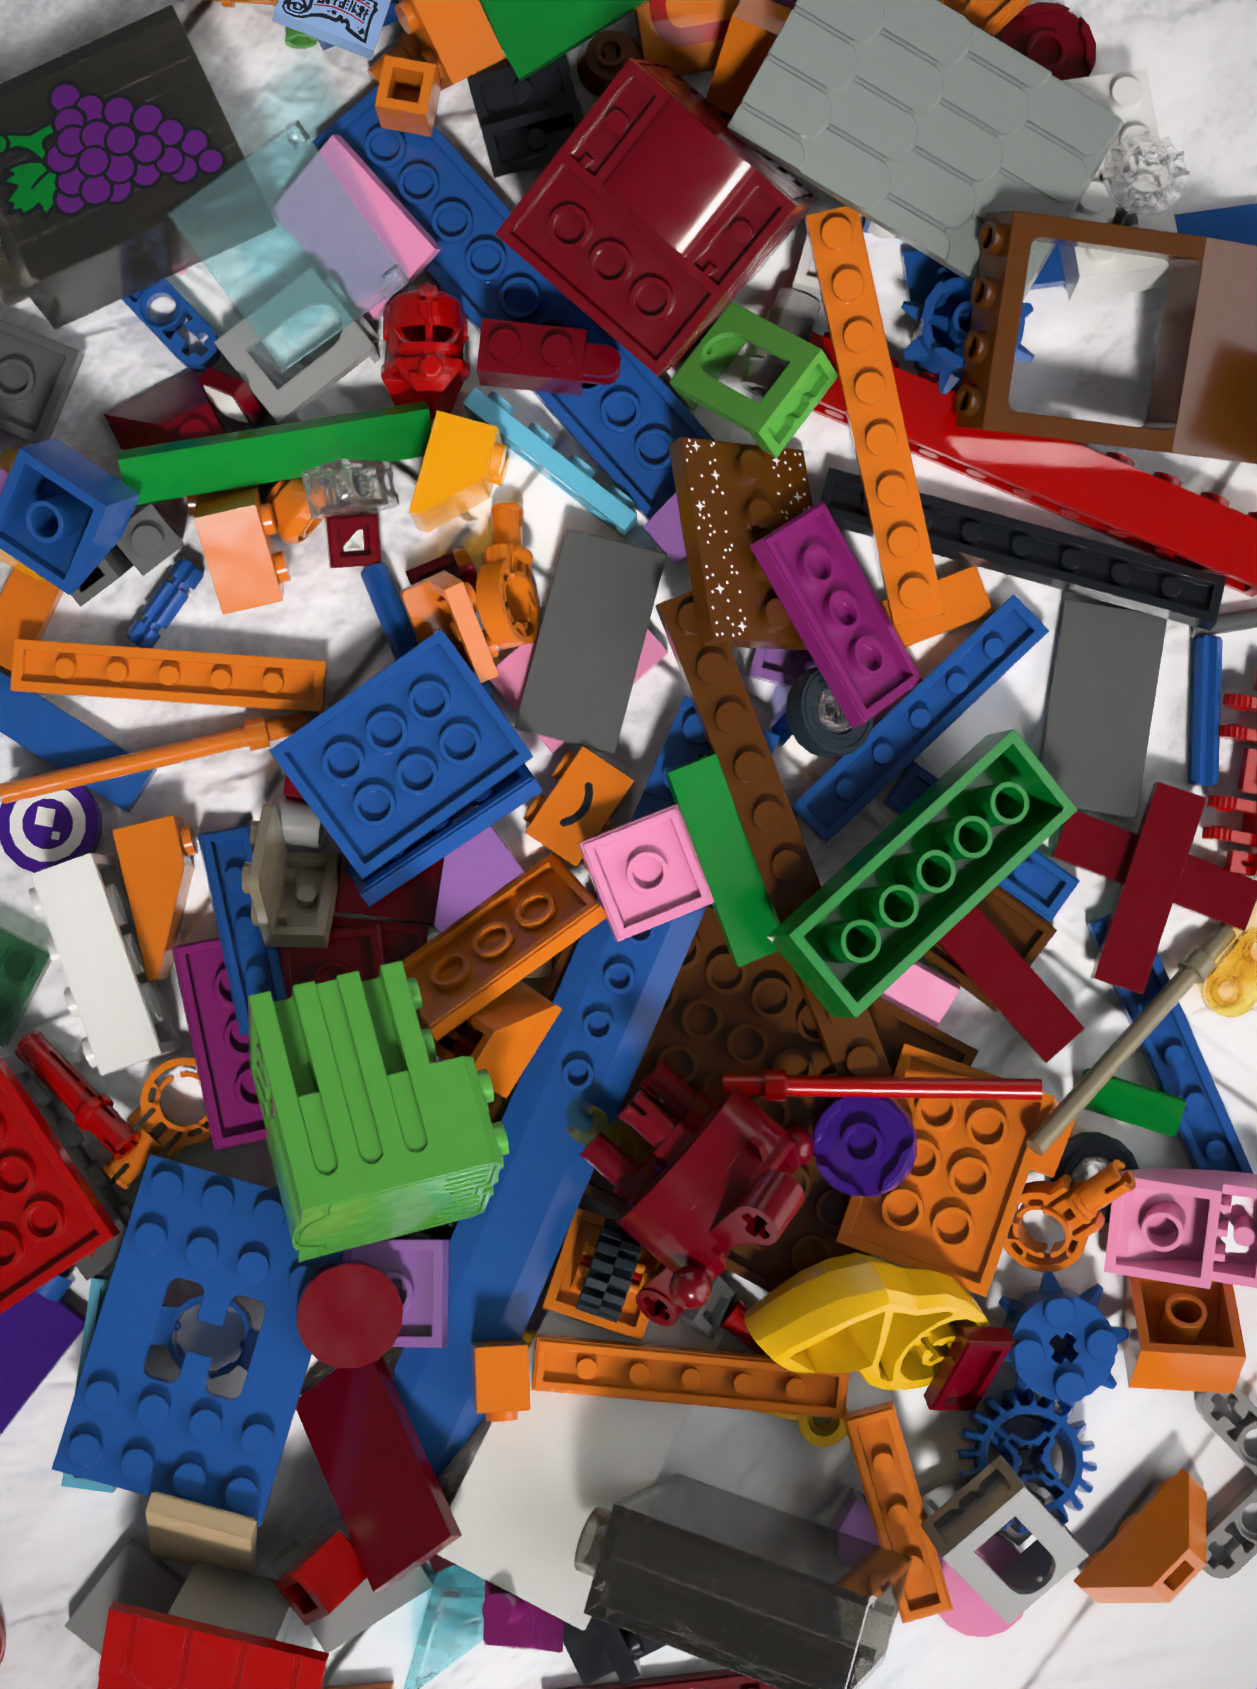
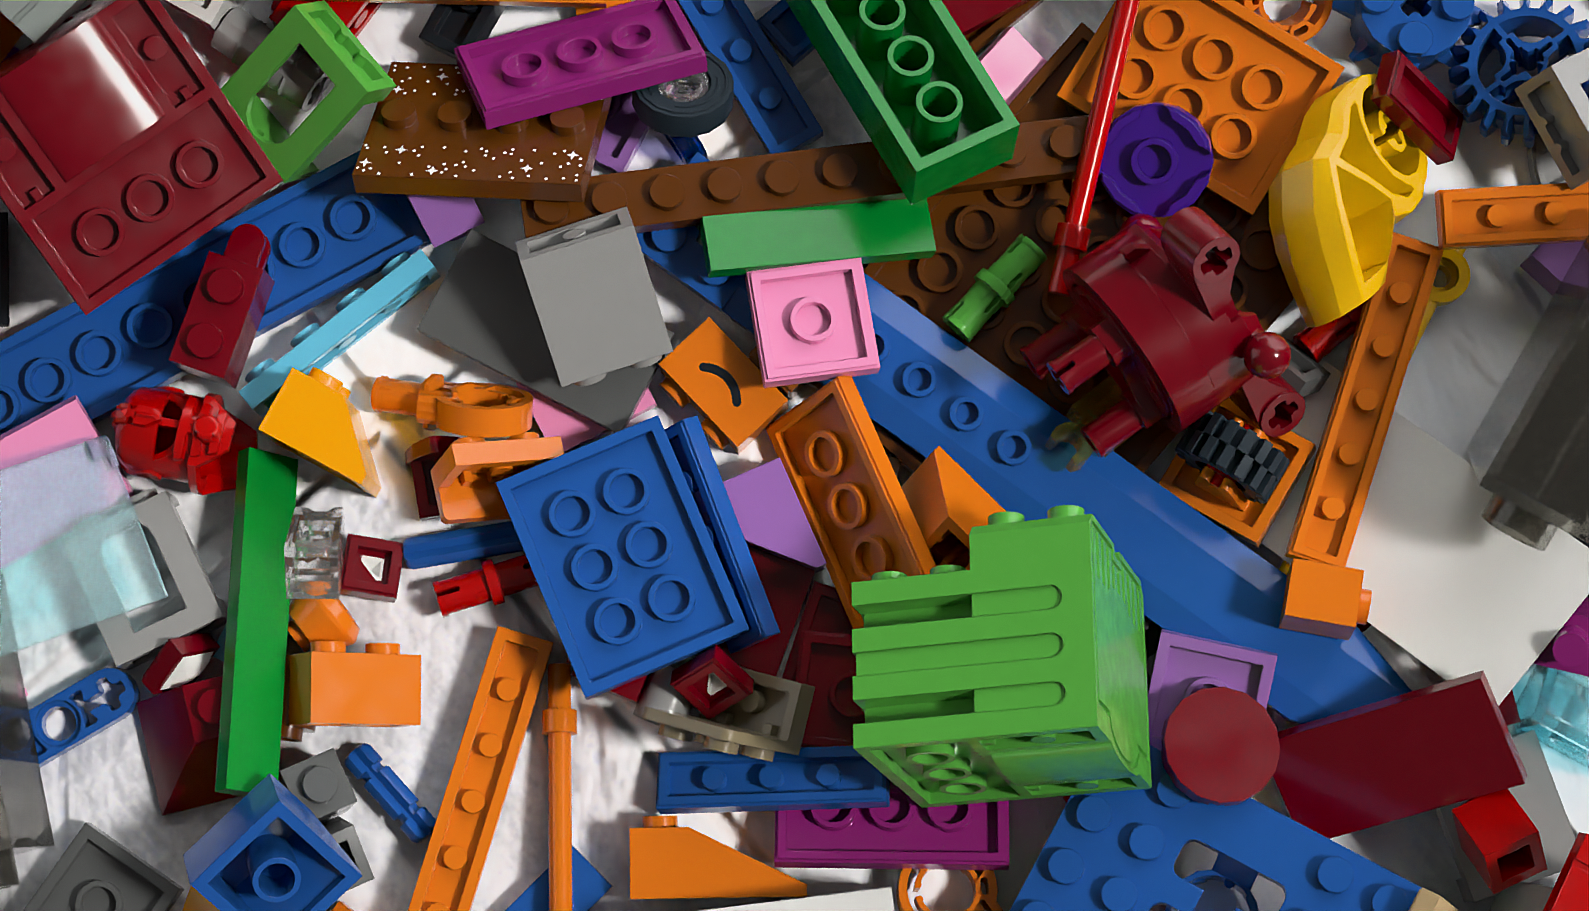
camera: 75 degrees left, 5 degrees down
(313, 857) = (712, 682): none -> dark red tile
(358, 638) = (484, 584): none -> red pin
(621, 674) = (594, 298): none -> light grey panel
(718, 1026) = (994, 287): none -> bright green pin

